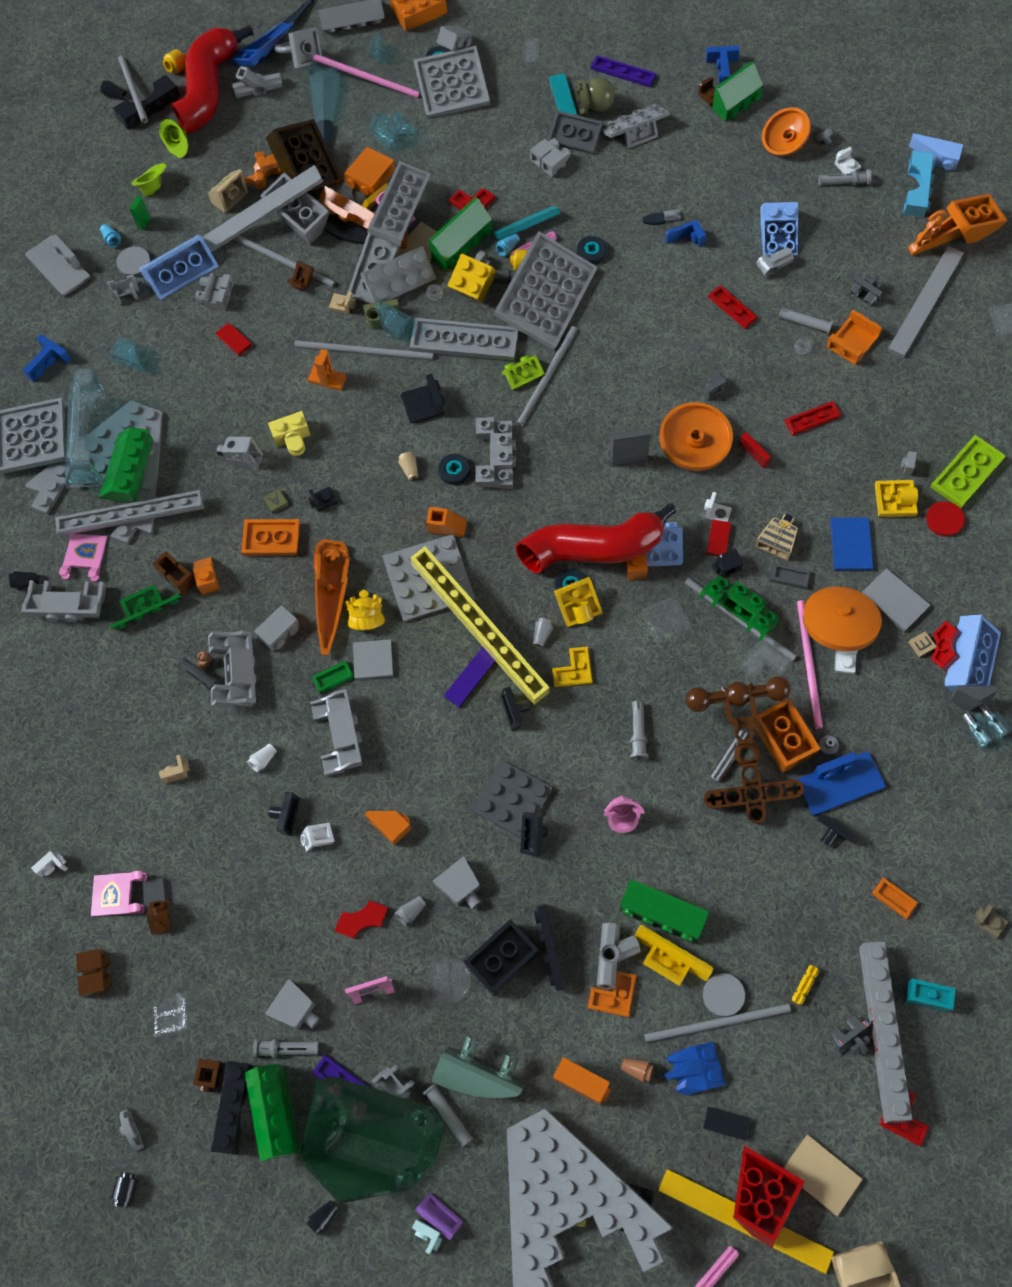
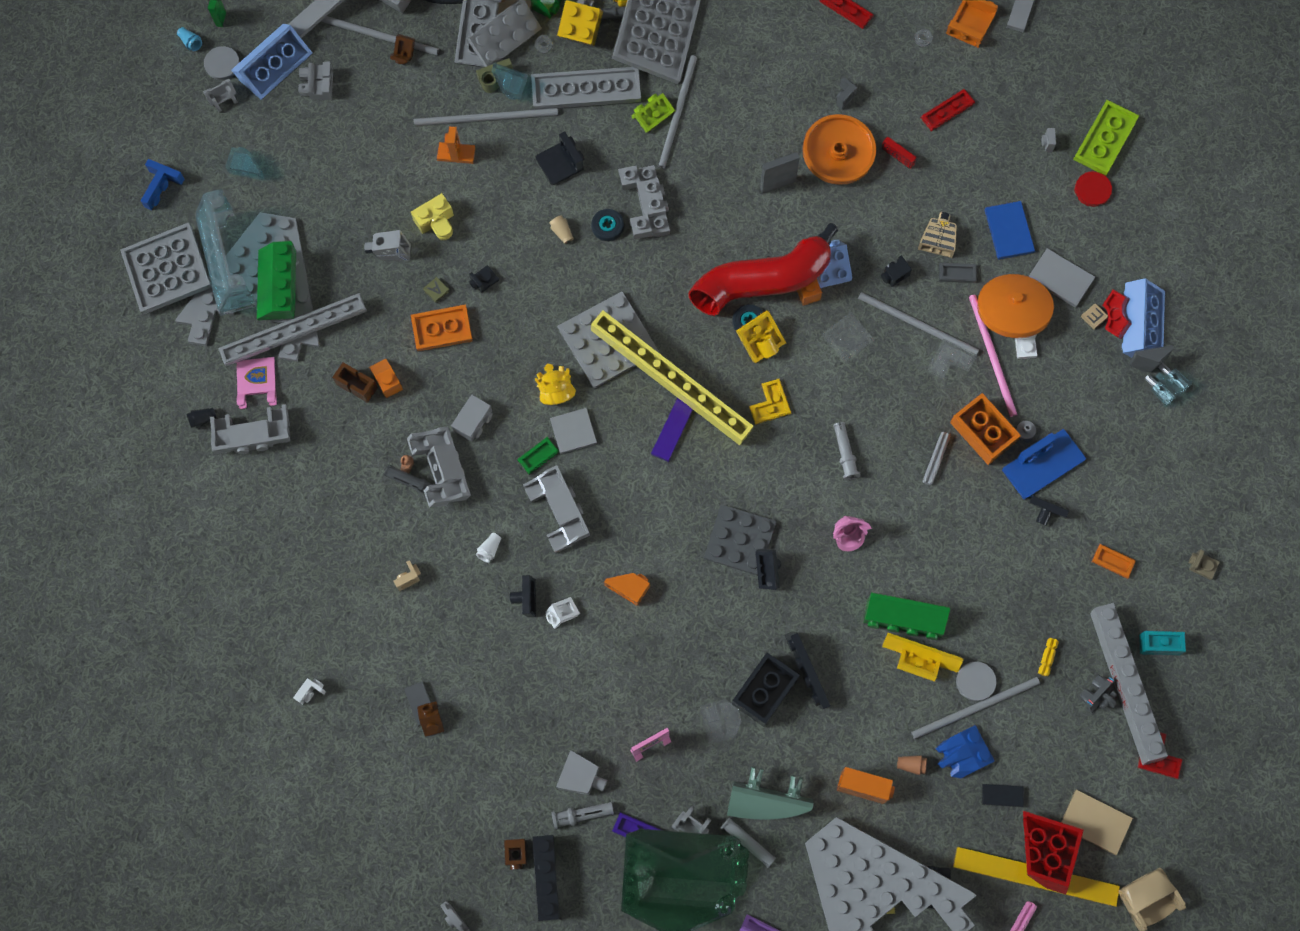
camera: 15 degrees left, 5 degrees up
(58, 265) = (142, 79): light grey bracket -> none
(93, 983) = (376, 774): reddish brown piece -> none
(113, 894) = (378, 706): bright pink flag -> none
(141, 603) = (329, 419): green bracket -> none
(171, 1015) = (466, 807): clear slope -> none
(233, 339) = (349, 128): red tile -> none
(272, 1112) = (585, 874): green slope -> none
(331, 578) = (514, 366): orange piece -> none
(342, 303) = (452, 71): tan bracket -> none
(352, 923) = (631, 676): red tile -> none
(410, 910) = (668, 664): light grey cone -> none
(445, 522) = (613, 281): orange slope -> none
(459, 884) = (709, 629): light grey torso -> none
(513, 708) = (721, 453): black tile -> none
(542, 631) = (732, 371): light grey cone -> none
(615, 1001) = (879, 707): orange tile -> none
(619, 949) = (873, 661): light grey piece -> none
(711, 507) = (868, 217): white bracket -> none
(718, 537) = (881, 247): red tile -> none
(738, 695) = (935, 399): reddish brown piece -> none
(742, 604) = (919, 310): green bracket -> none
(805, 320) = (919, 9): light grey pin -> none
(896, 498) = (1043, 177): yellow plate -> none

